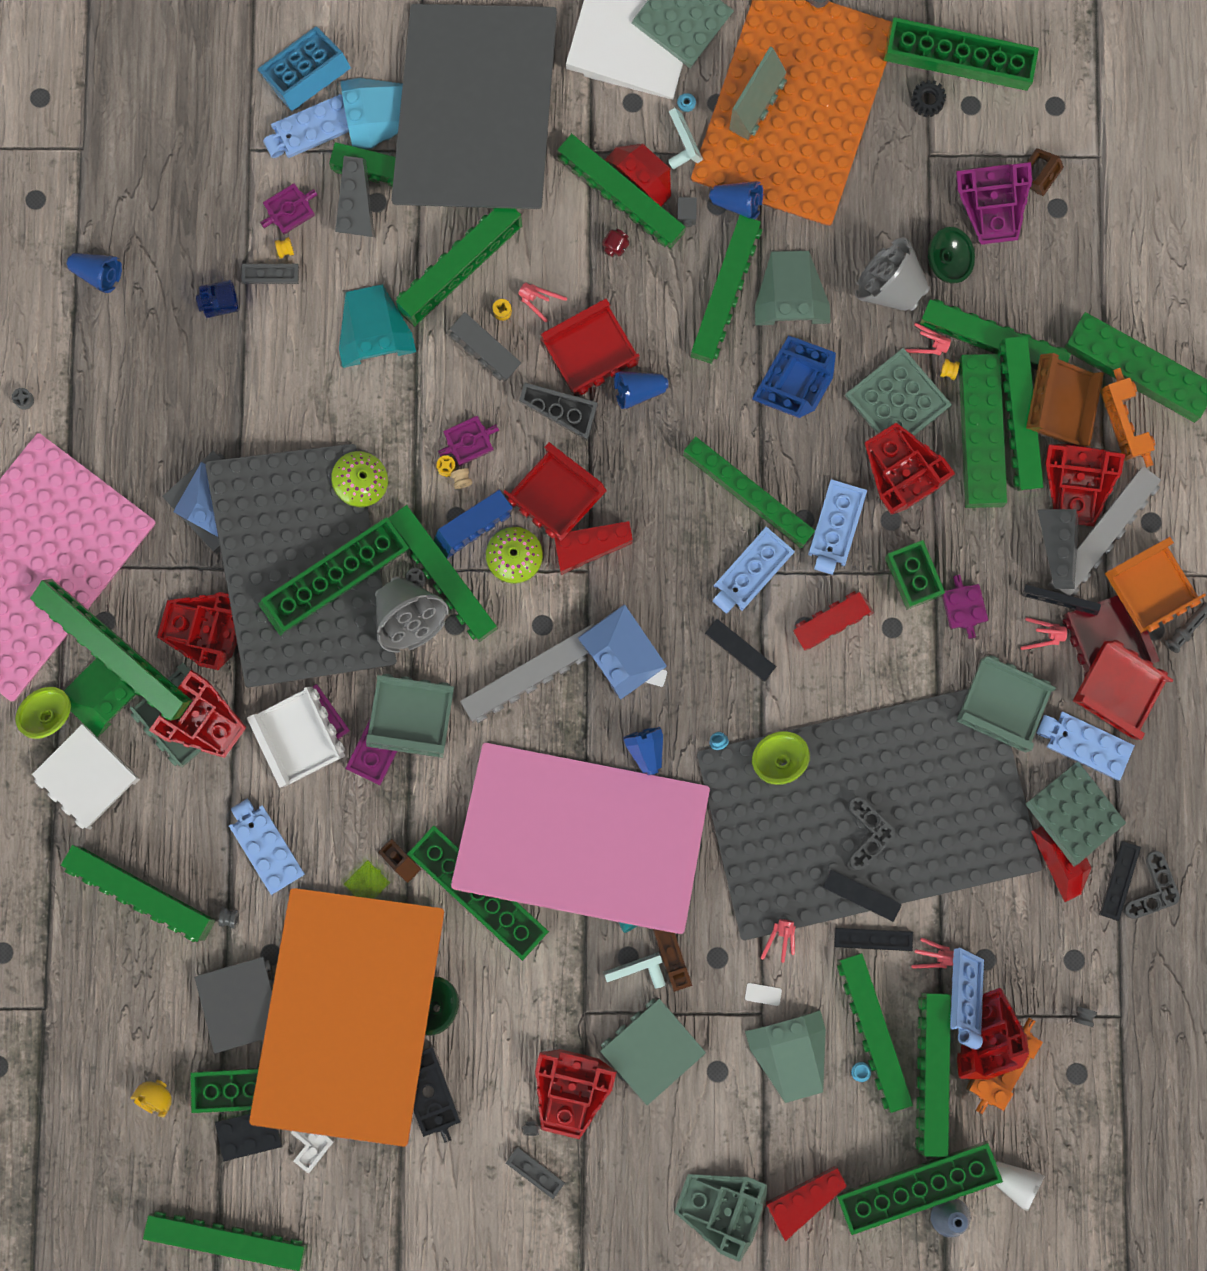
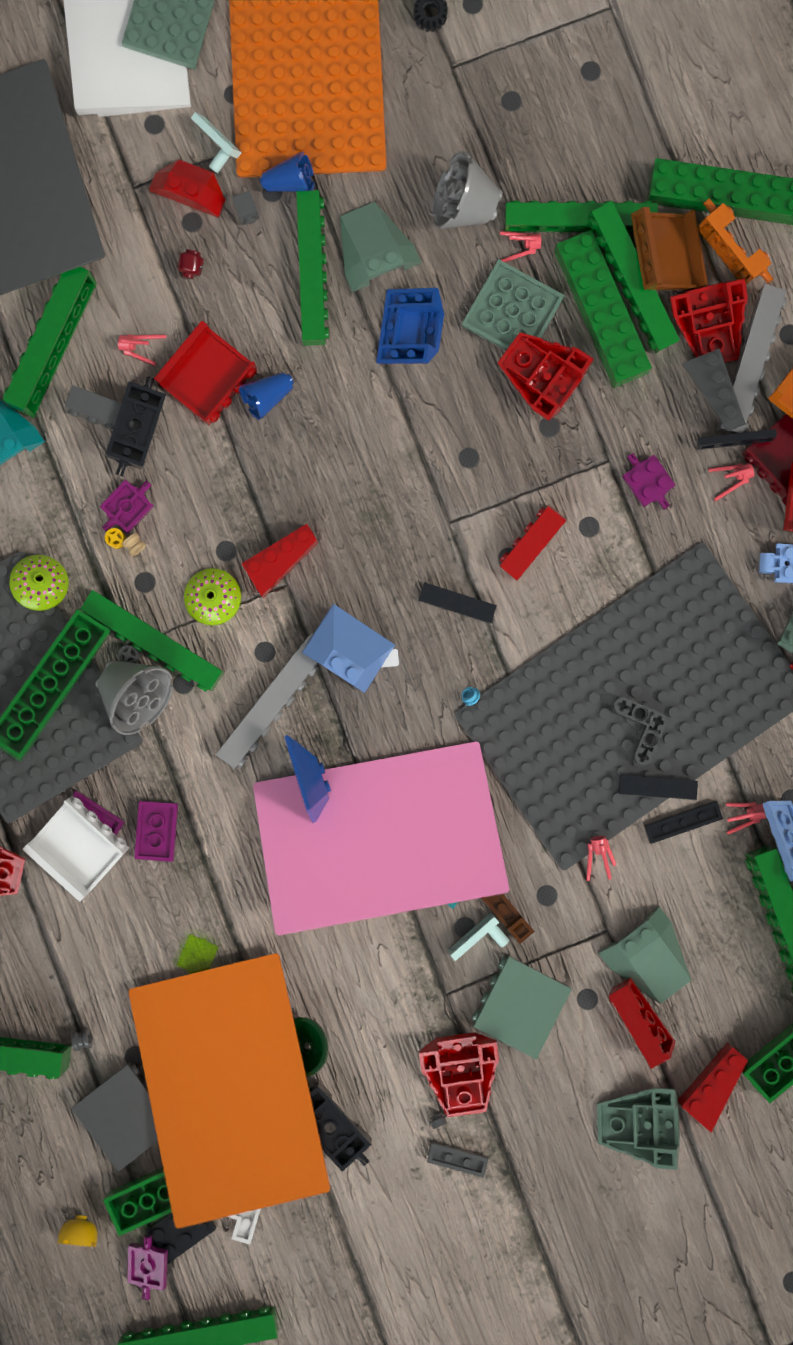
camera: 20 degrees left, 5 degrees up
(204, 1155) = (147, 1266): none -> magenta plate
(265, 847) = (88, 960): light blue hinge -> none
(399, 860) = (219, 924): reddish brown slope -> none
(410, 716) = (175, 786): sand green panel -> none
(472, 523) = (161, 583): blue wedge -> none
(492, 385) = (130, 445): none -> black brick
(501, 314) = (112, 372): yellow wheel -> none
(502, 917) = (343, 942): green brick -> none
(539, 756) = (309, 777): none -> blue slope
(556, 493) = (228, 524): red panel -> none
(563, 409) = (205, 441): dark grey wedge -> none
(620, 191) = (176, 213): green brick -> none
(646, 749) = (406, 730): blue cone -> none
(686, 107) = (205, 109): medium azure plate -> none
(748, 492) = (407, 452): green brick -> none
(752, 571) = (439, 525): light blue hinge -> none
(758, 95) = (269, 68): sand green slope -> none
(760, 1111) = (643, 1023): none -> red wedge
(763, 994) = (601, 912): white sticker -> none
(780, 749) = (527, 683): lime dish -> none
(836, 525) = (501, 451): light blue hinge -> none
(861, 1072) = (718, 948): medium azure plate -> none
(875, 1033) = (718, 907): green brick -> none
(914, 575) = (592, 469): green brick -> none
(949, 369) = (549, 262): yellow wheel -> none
(951, 255) = (510, 153): dark green dish -> none
(995, 199) = (531, 84): magenta wedge -> none
(1005, 703) = (721, 556): sand green panel -> none
(1049, 172) = (570, 42): reddish brown tile -> none

